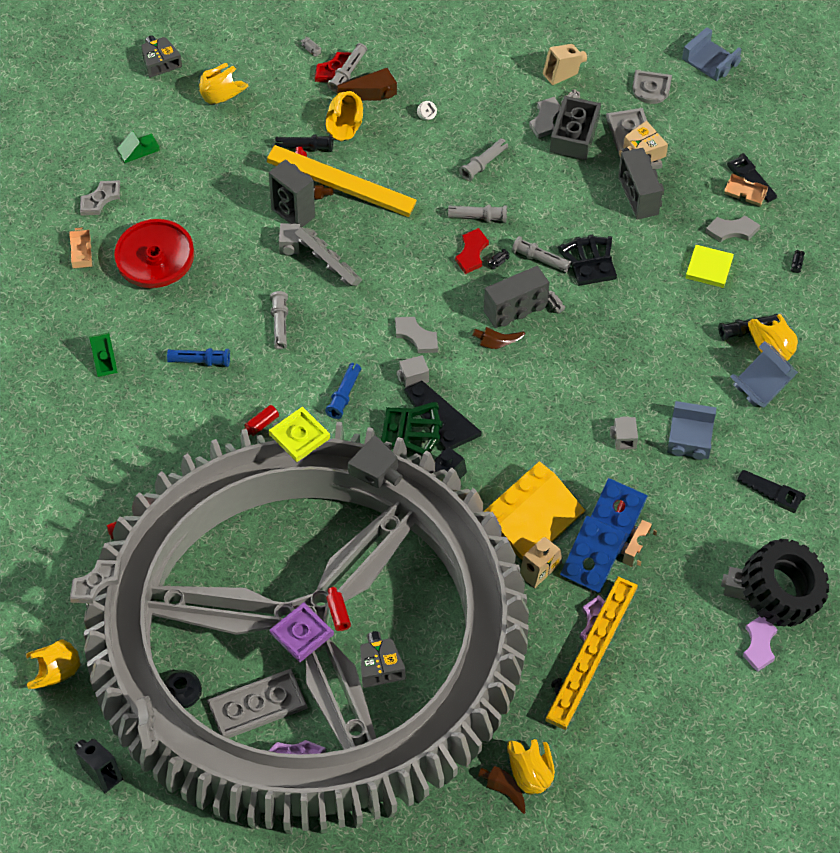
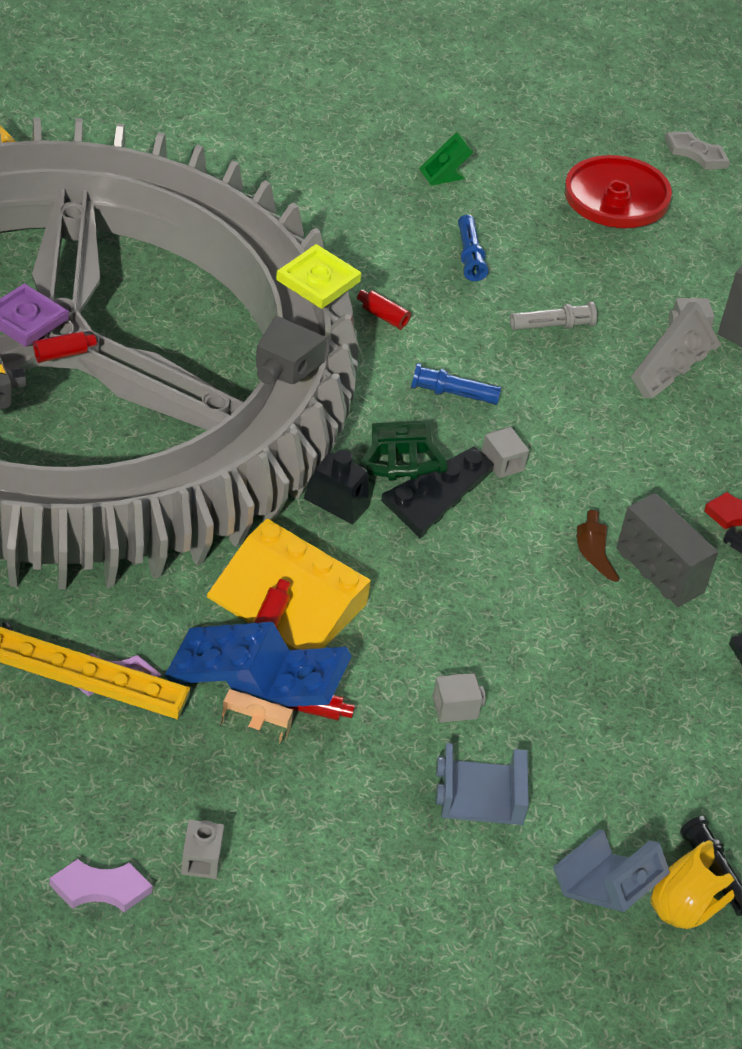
camera: 75 degrees right, 10 degrees down
(80, 248) = (617, 134): light nougat piece -> none
(87, 587) = (72, 121): light grey tile -> none
(409, 329) = (569, 465): light grey tile -> none
(543, 558) = (203, 594): tan torso -> none
(555, 302) = (684, 610): light grey piece -> none
(556, 524) = (274, 603): none -> red cylinder
(772, 490) = (395, 903): black piece -> none
(800, 567) = (188, 842): black tyre -> none

